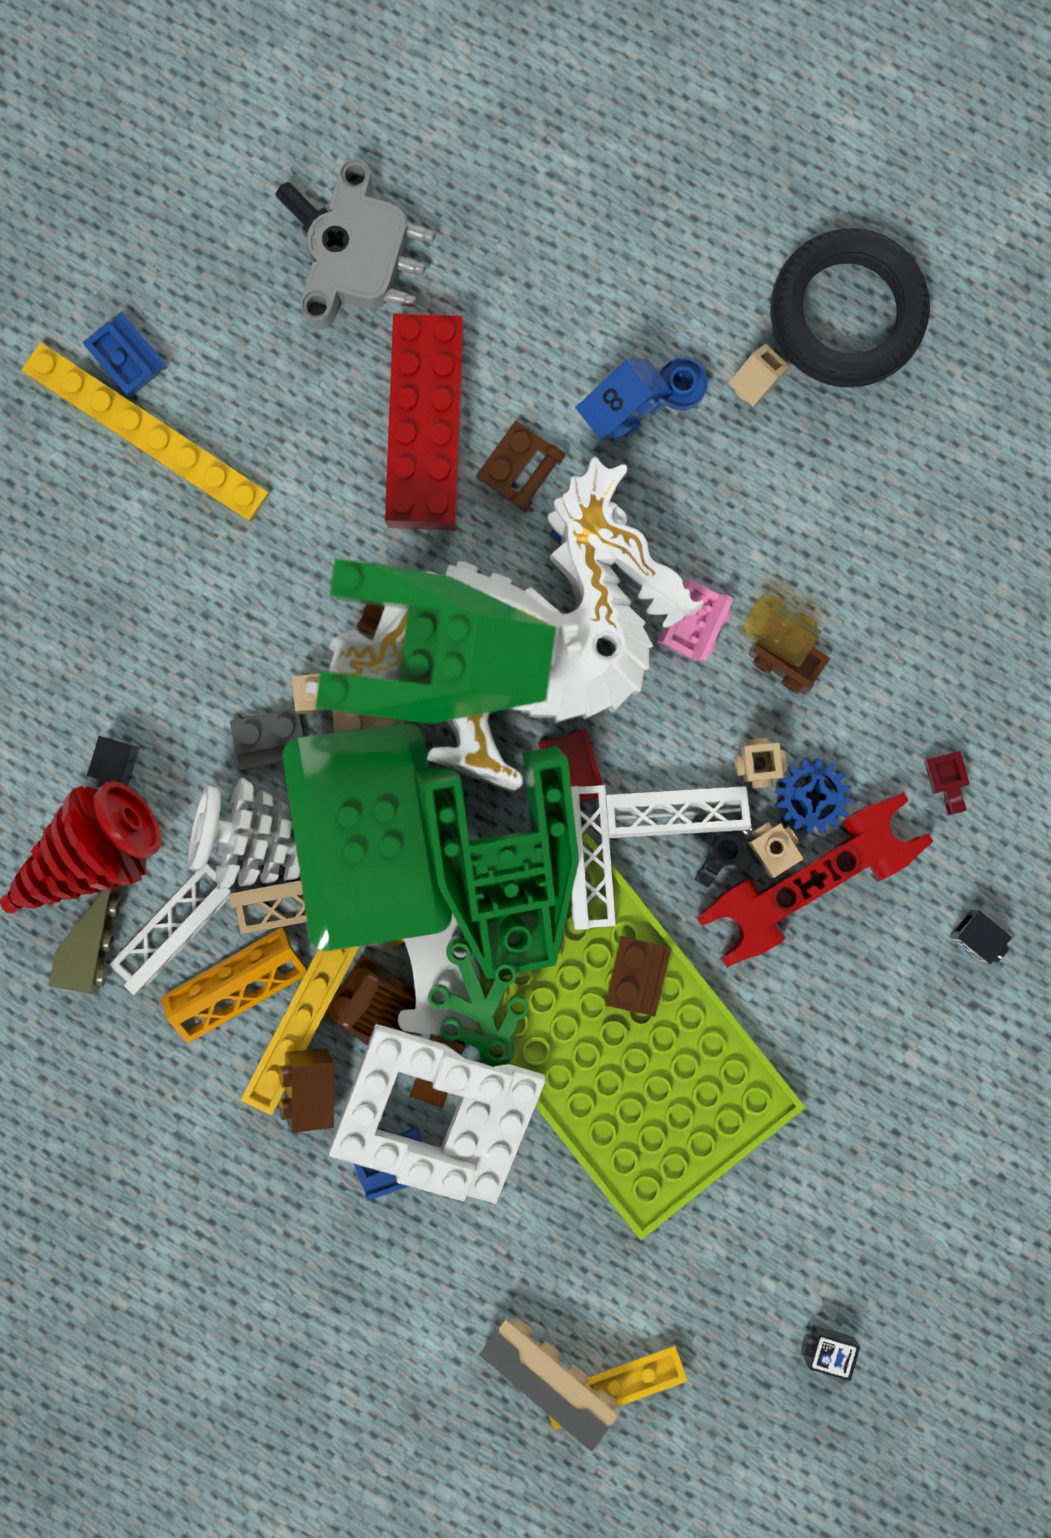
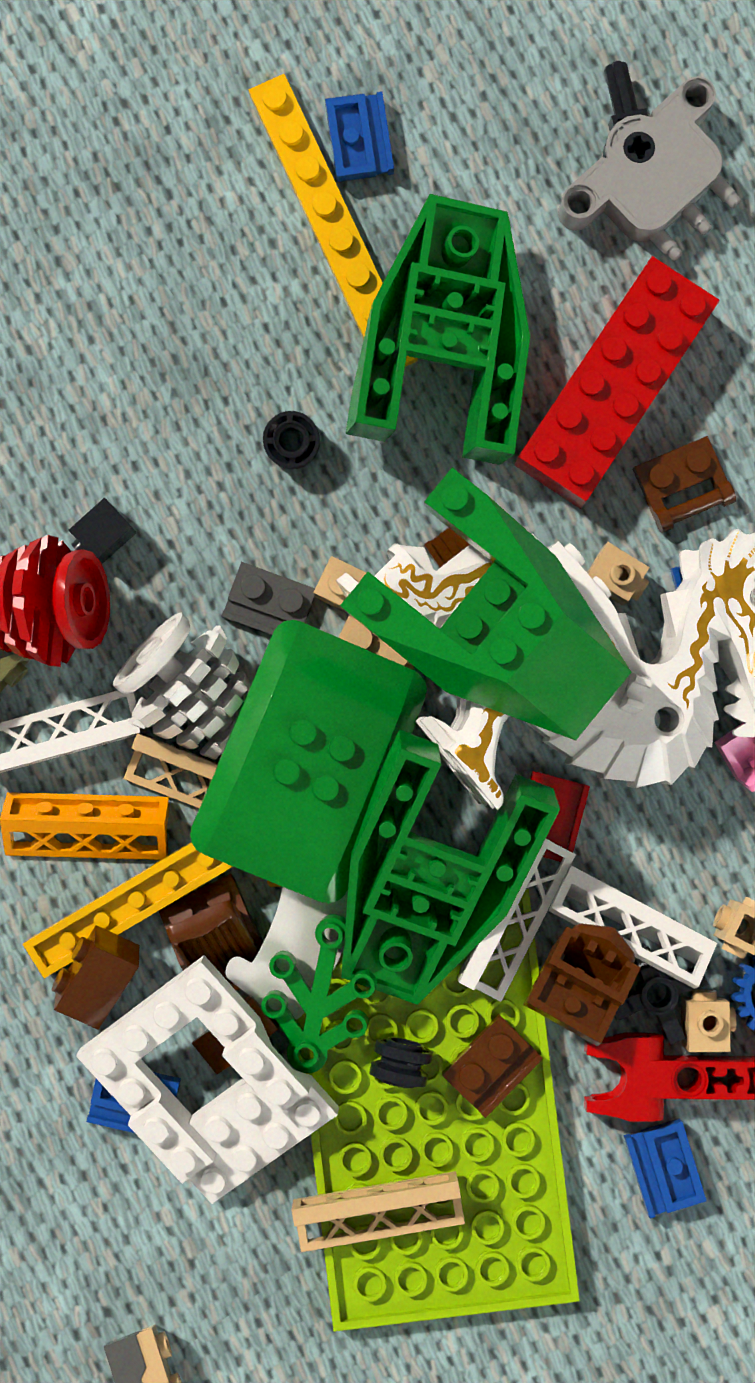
camera: 30 degrees right, 0 degrees up
(195, 606) = (286, 421): none -> black wheel
(269, 435) = (452, 303): none -> green wedge
(513, 561) = (620, 573): none -> tan brick
(568, 1014) = (401, 1062): none -> black wheel
(610, 1125) = (376, 1201): none -> tan fence
(665, 872) = (585, 980): none -> reddish brown piece
(809, 973) = (665, 1168): none -> blue plate

